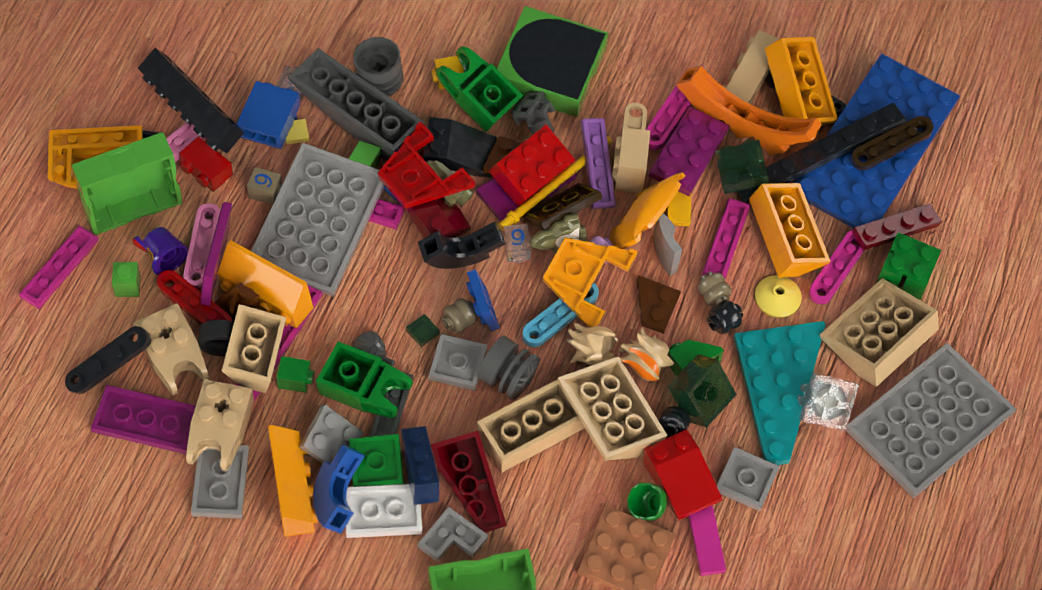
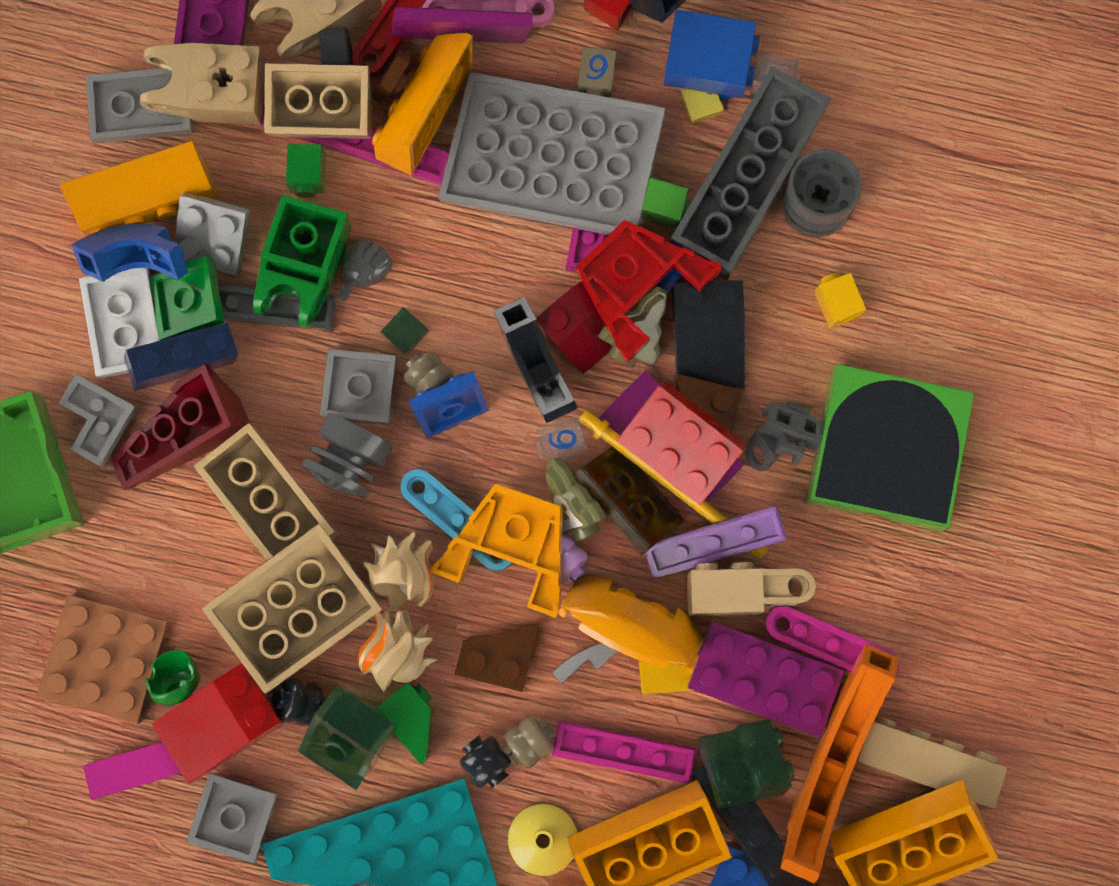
camera: 90 degrees right, 20 degrees up
(479, 90) = (815, 339): green brick -> none

